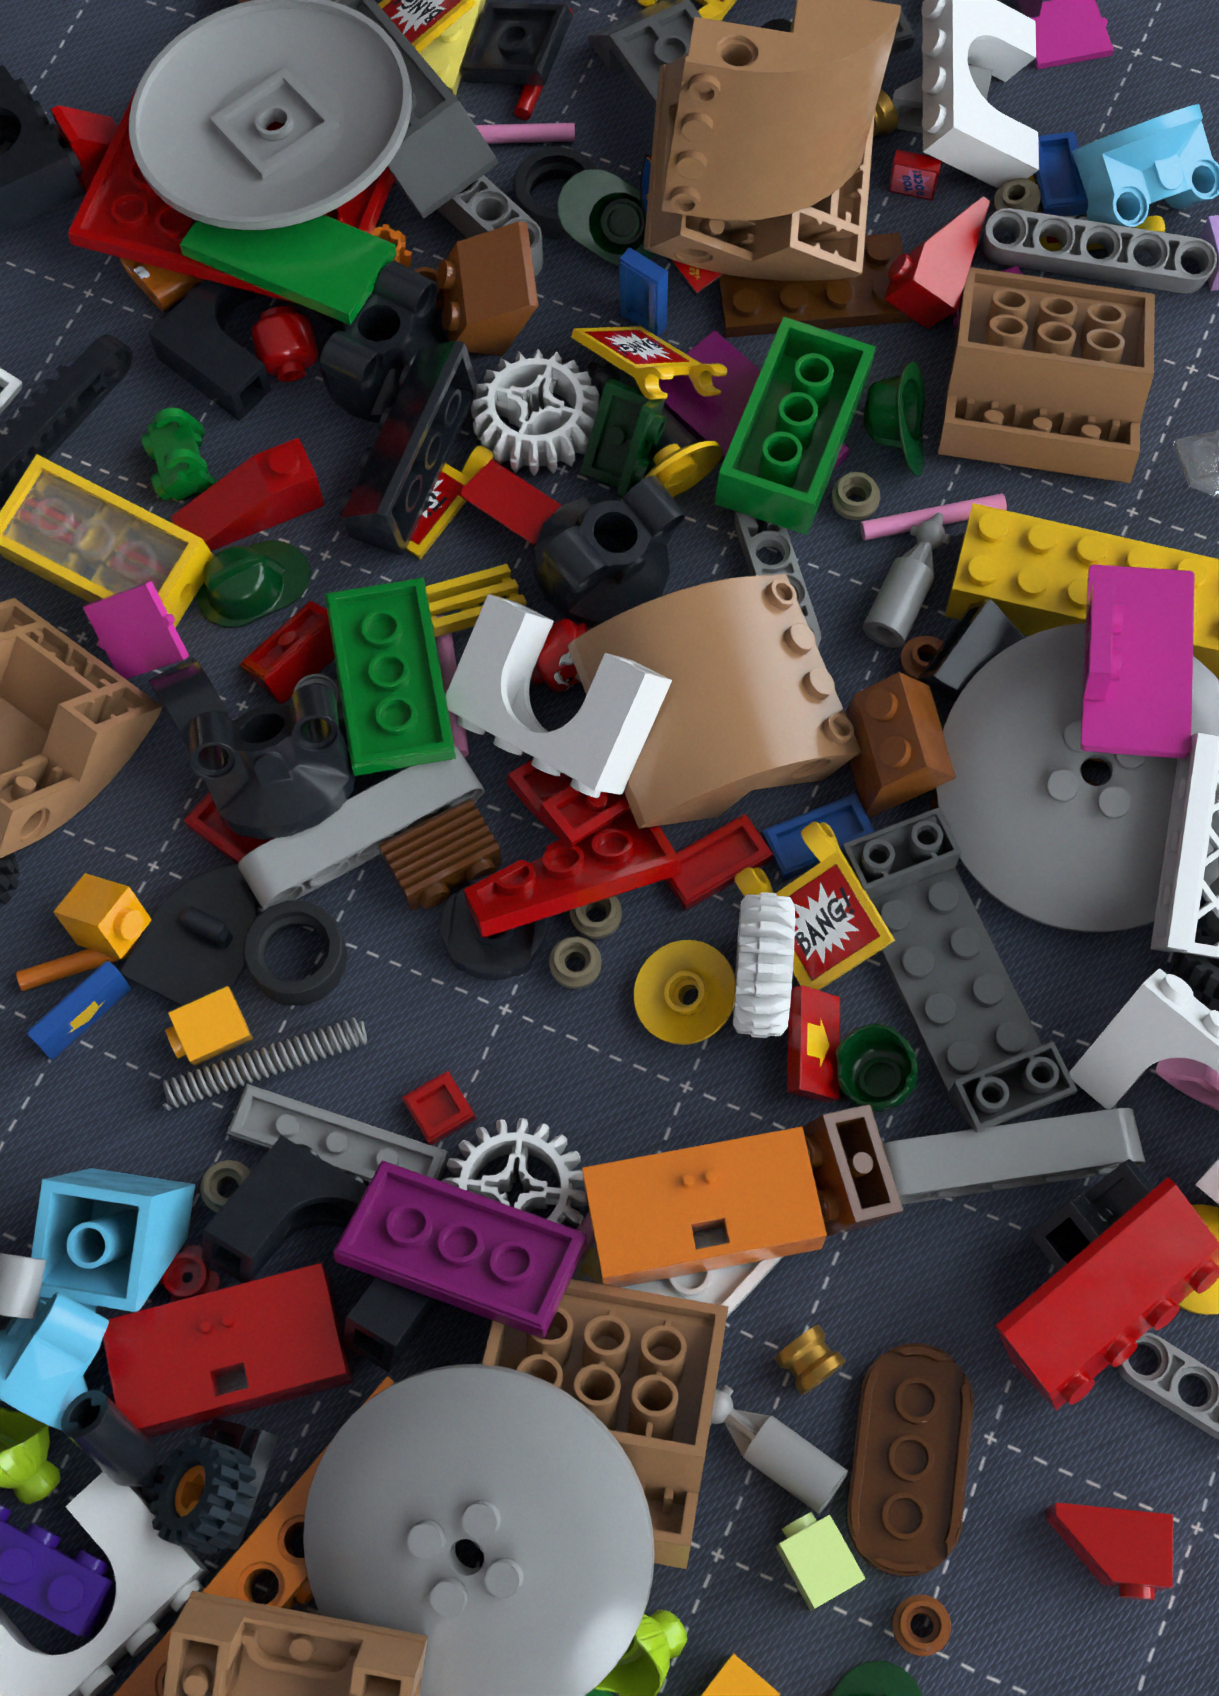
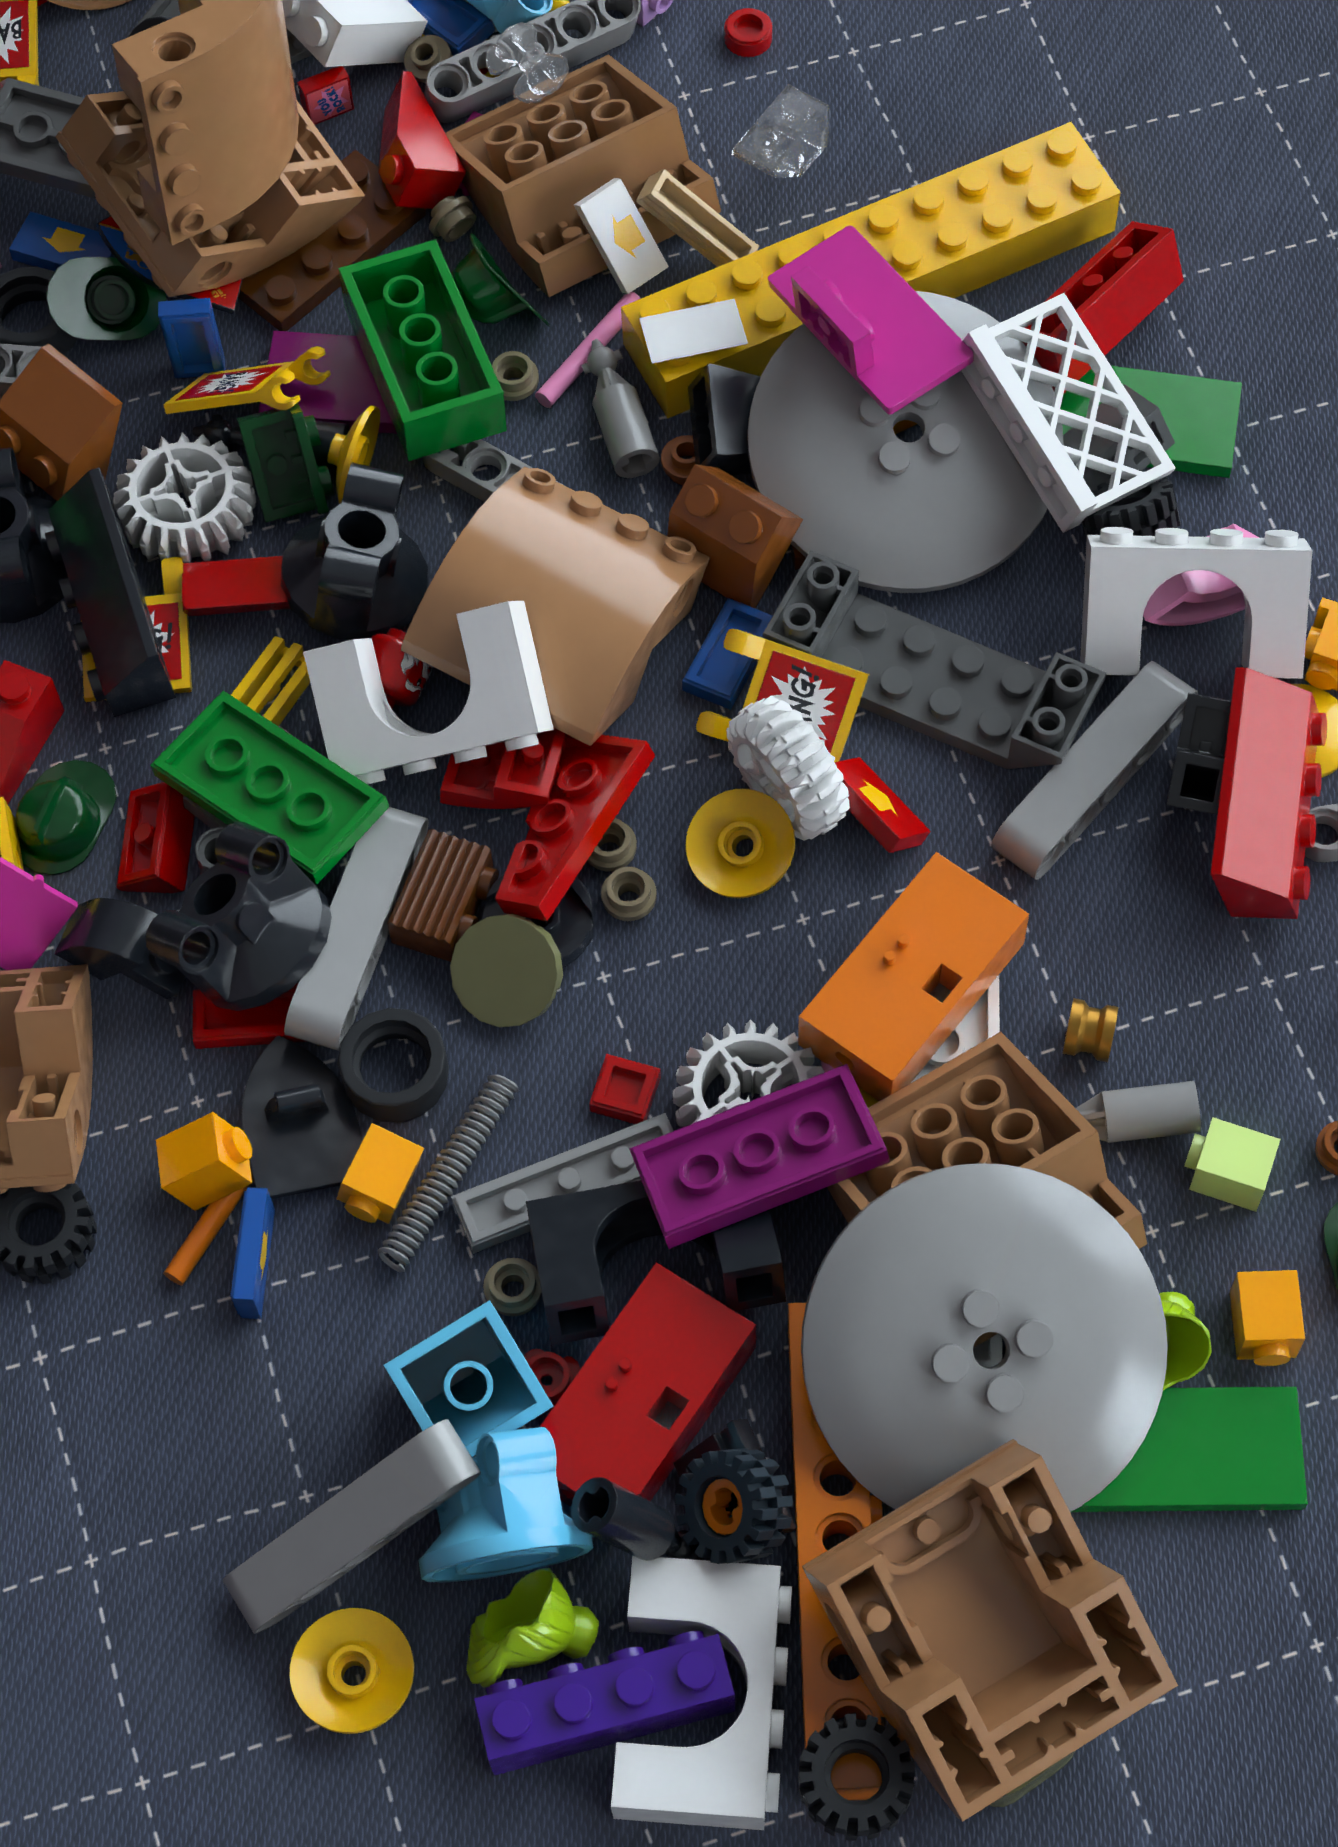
camera: 40 degrees left, 5 degrees down
(430, 949) = (506, 970): none -> olive tile
(620, 148) = (52, 242): none -> blue tile
(716, 860) = (670, 730): red tile -> none
(850, 1170) = (998, 857): reddish brown brick -> none
(876, 1067) = (940, 780): dark green hair -> none
(910, 1460) = (1226, 1040): reddish brown tile -> none
(921, 338) = (452, 218): none -> dark tan plate
(1006, 564) = (693, 331): none -> white sticker
(1026, 446) = (621, 235): none -> white tile
(1085, 272) = (542, 71): none -> clear piece
(1094, 476) = (693, 219): none -> tan piece

